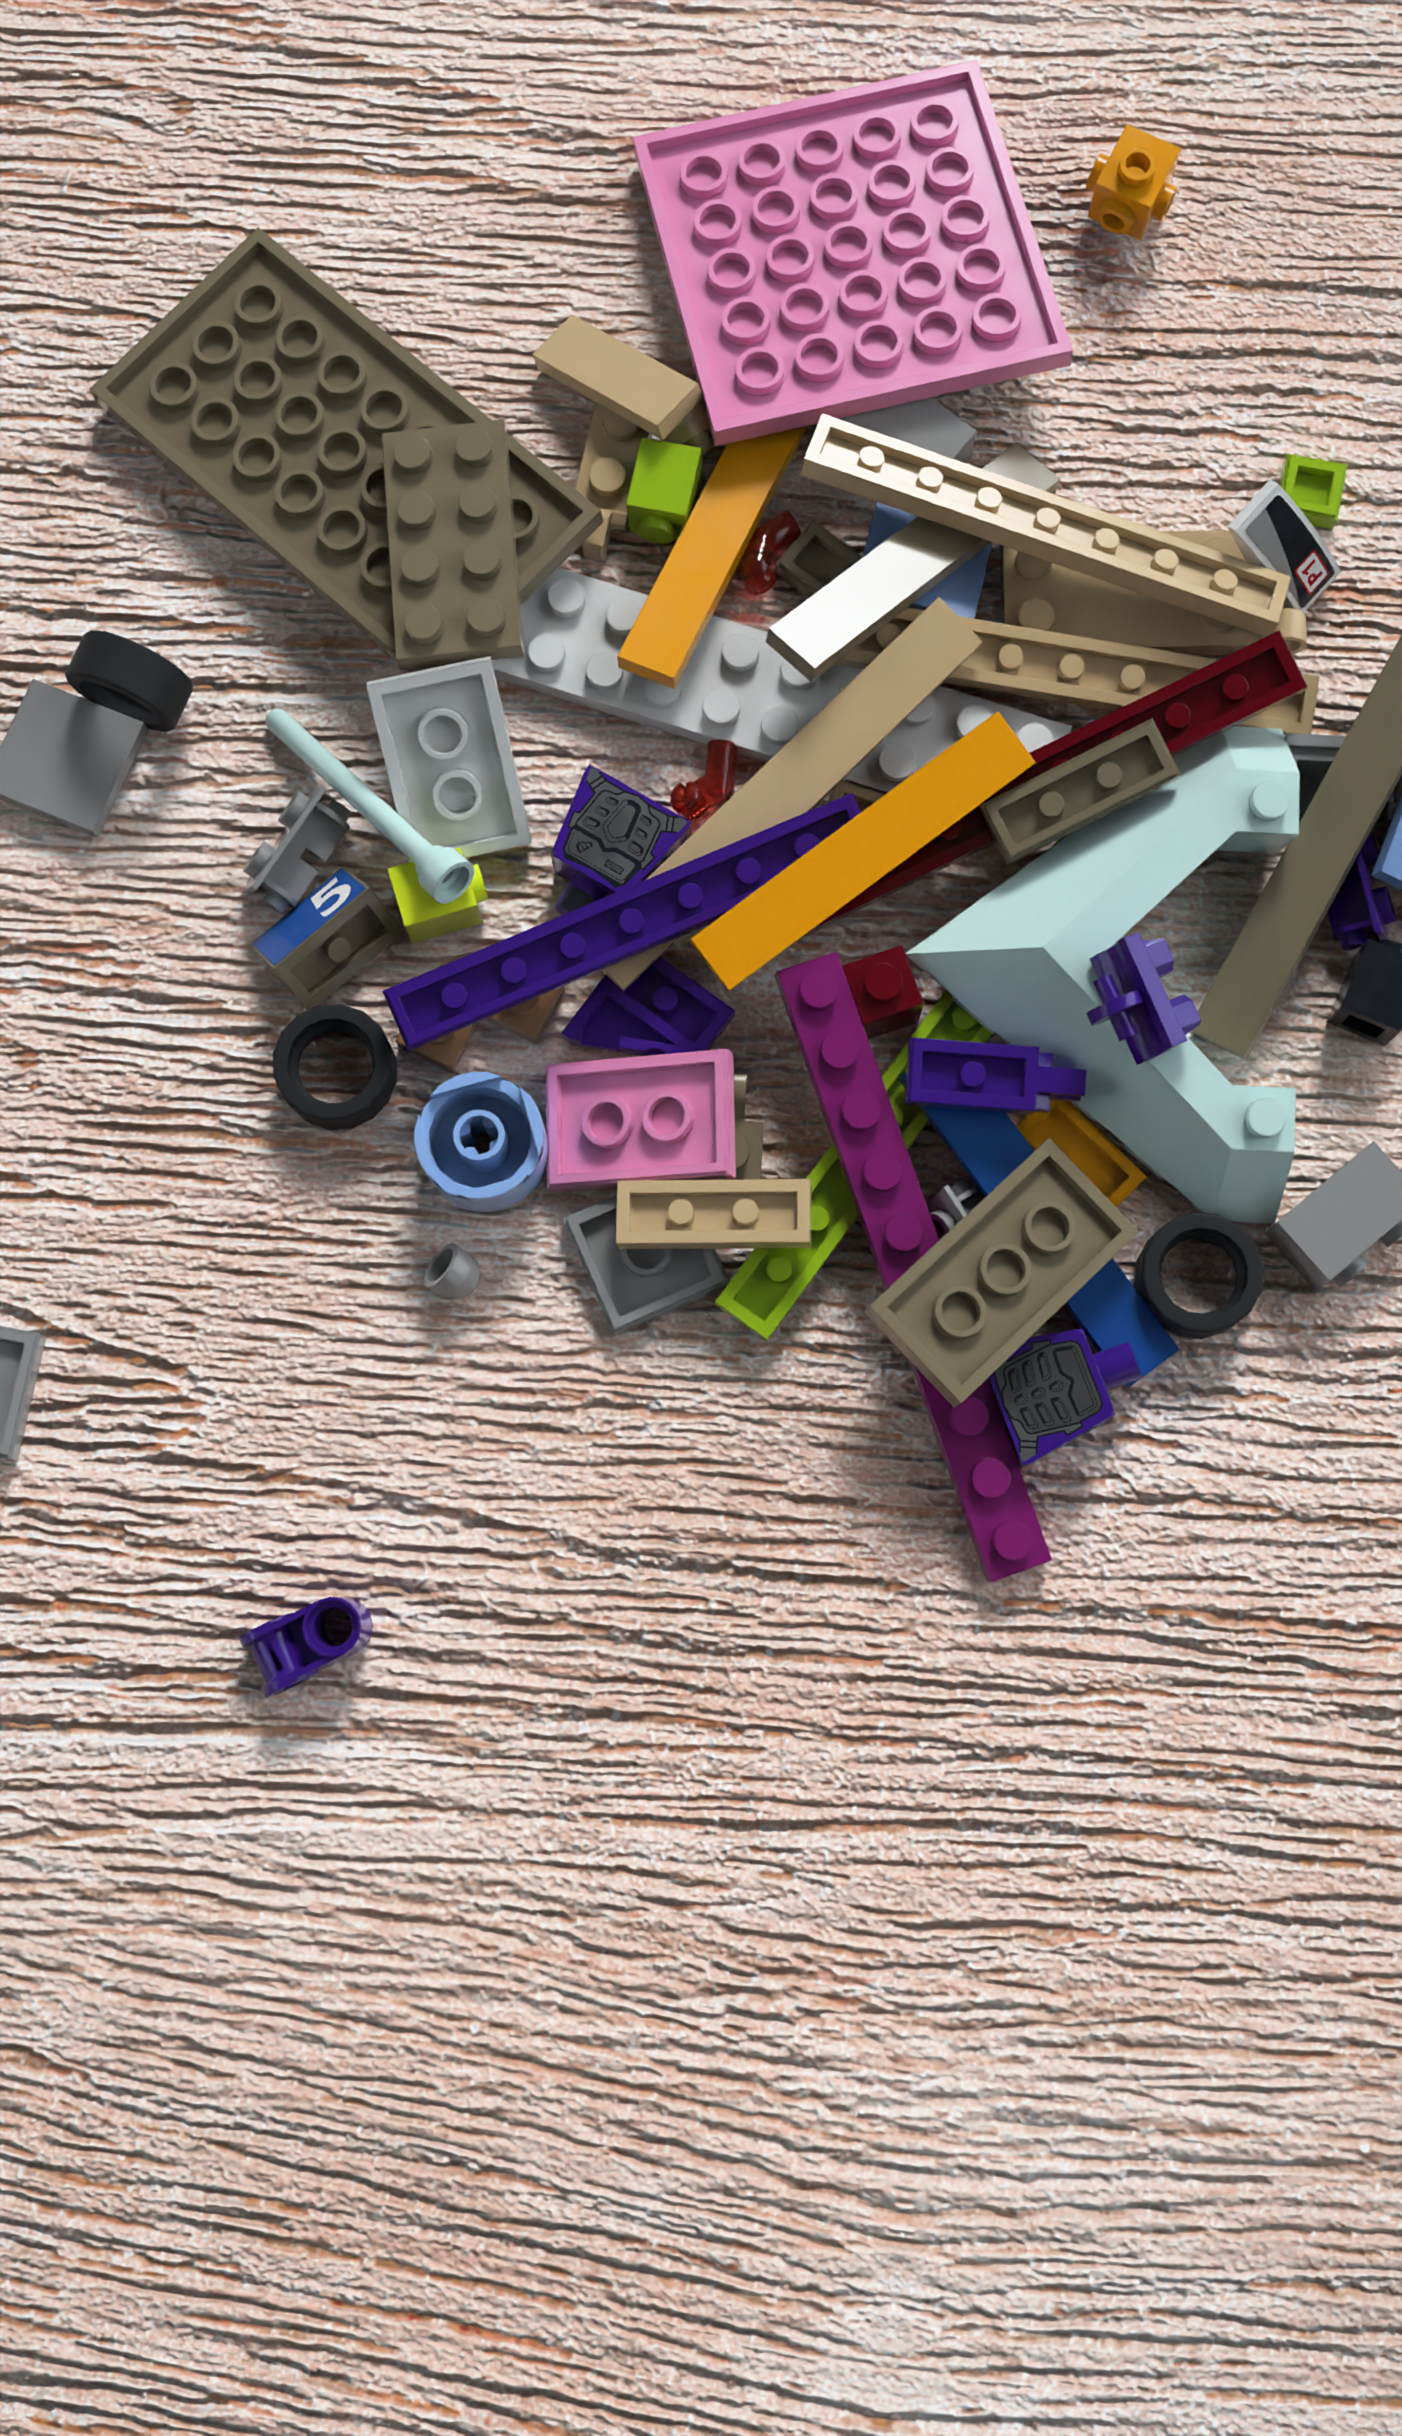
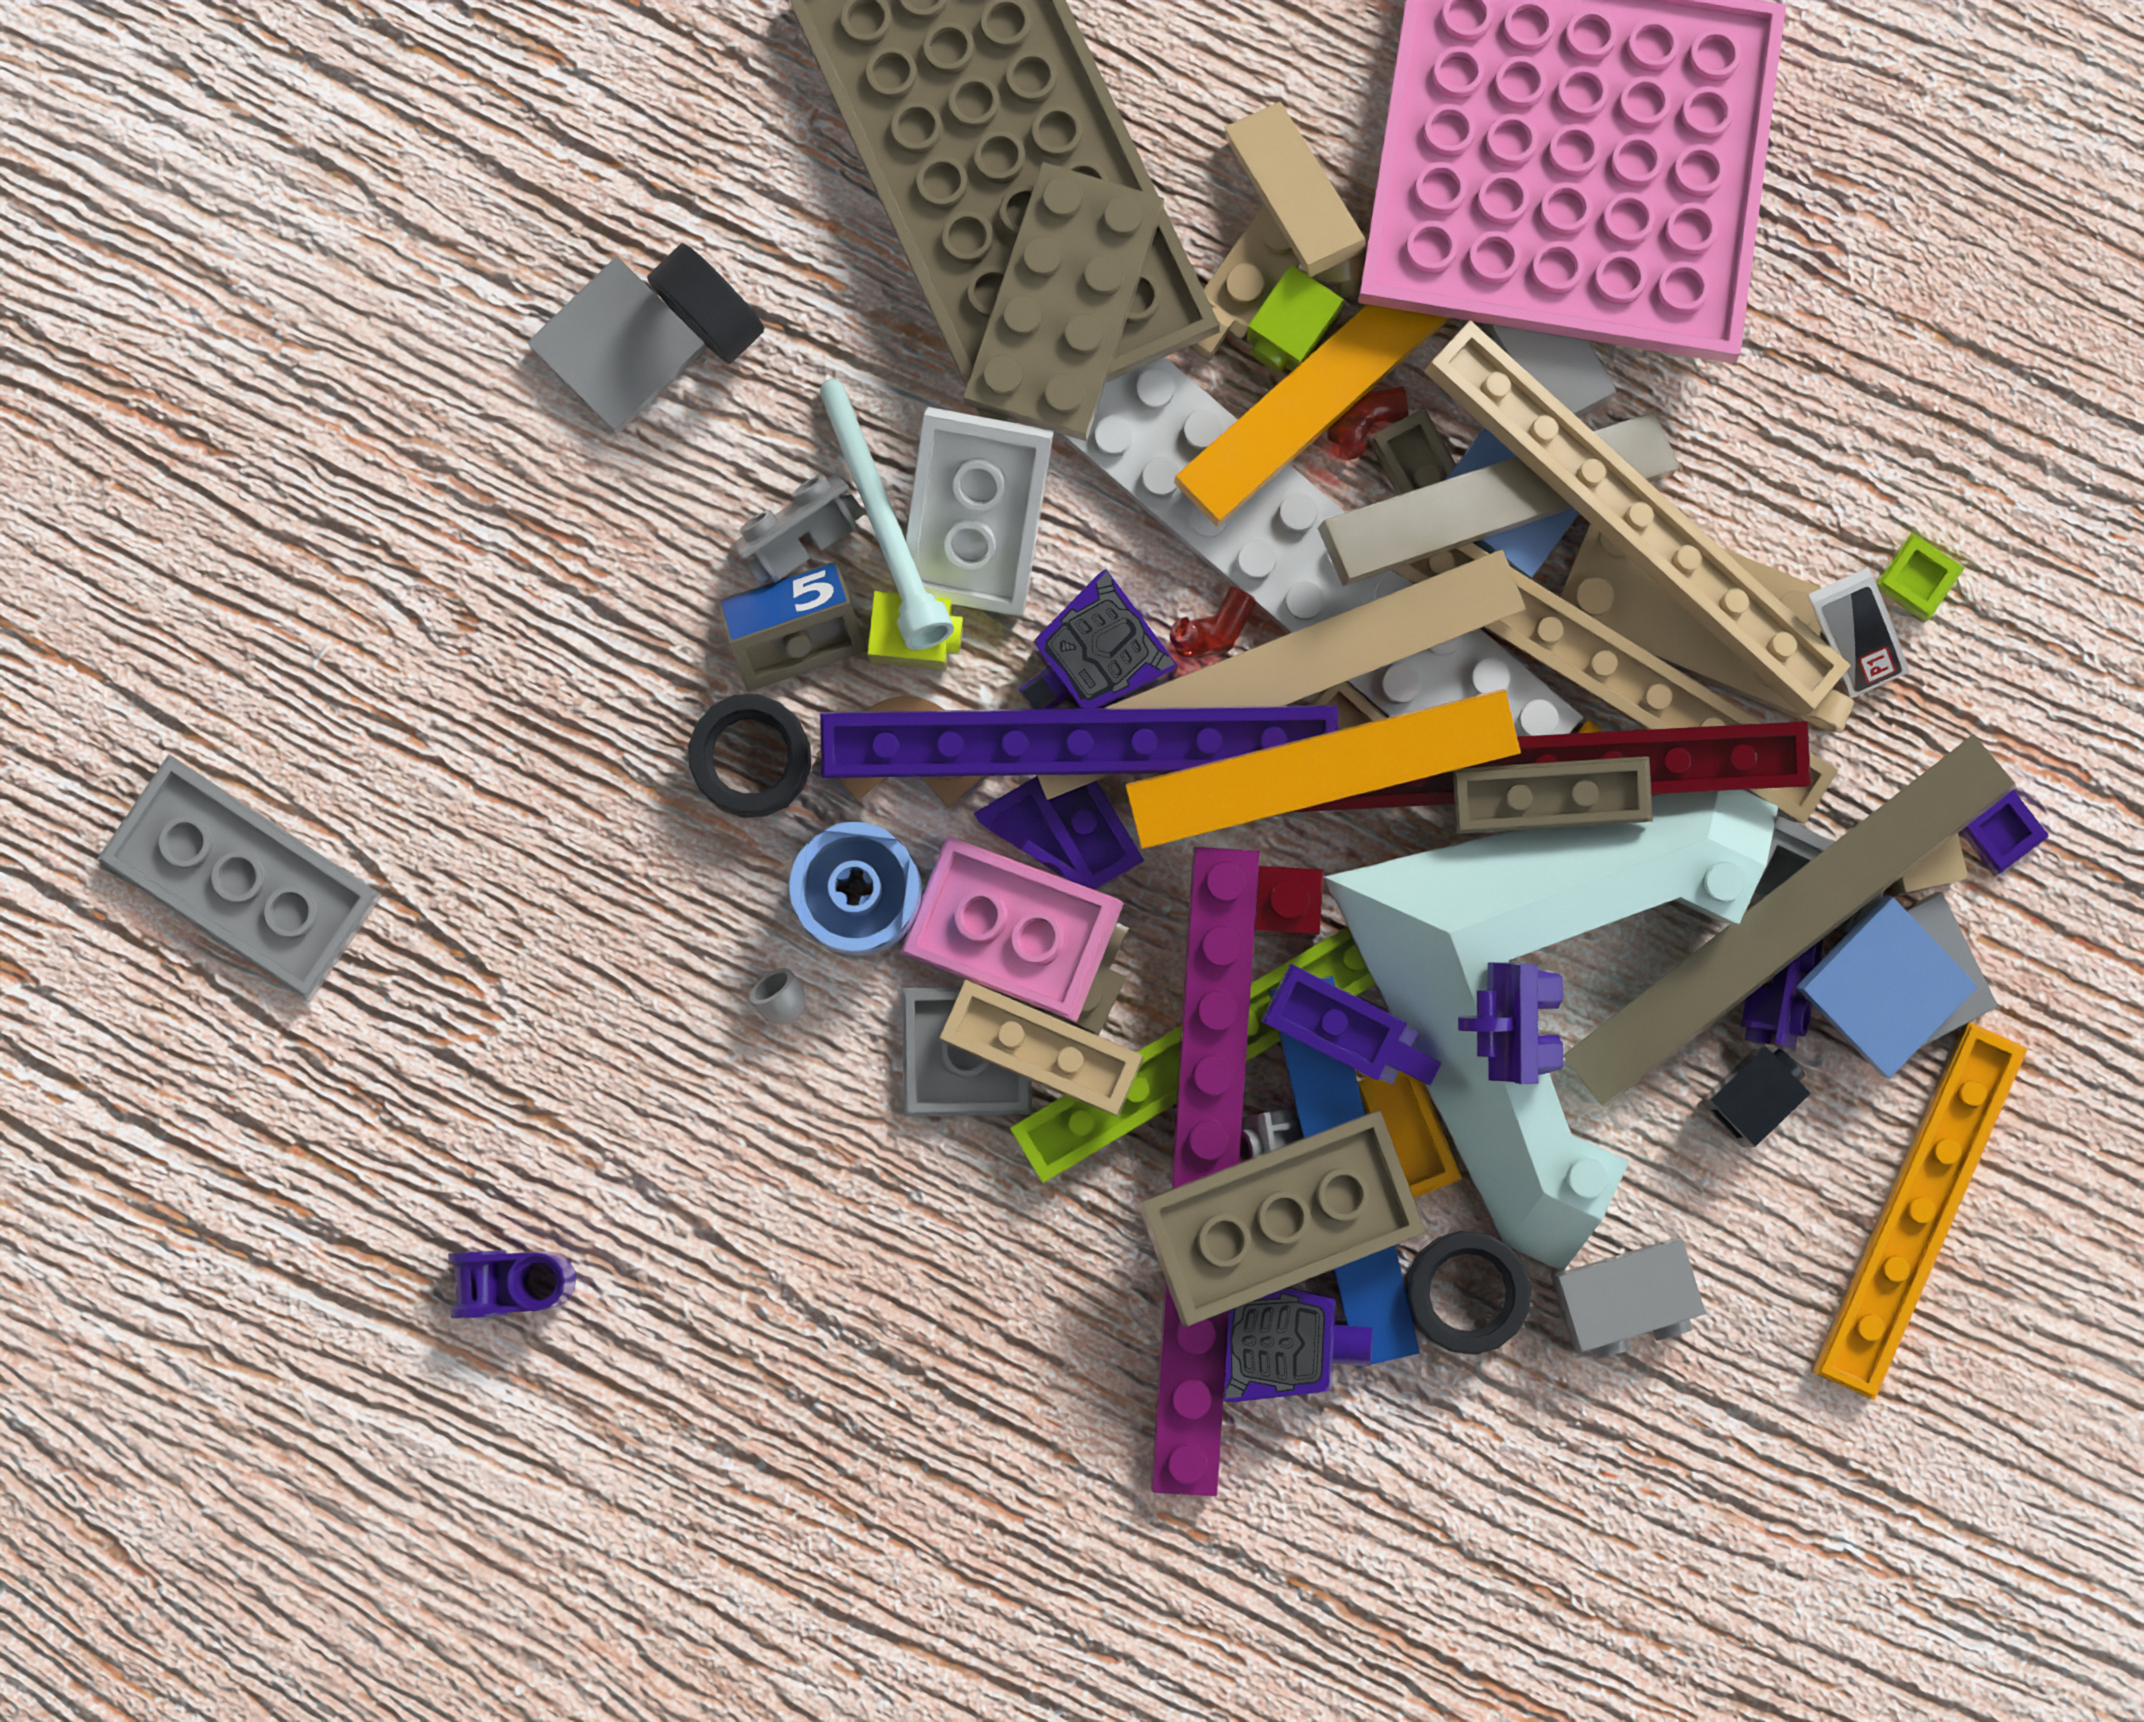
camera: 20 degrees right, 5 degrees up
(1133, 183) = (1880, 200): light orange brick -> none

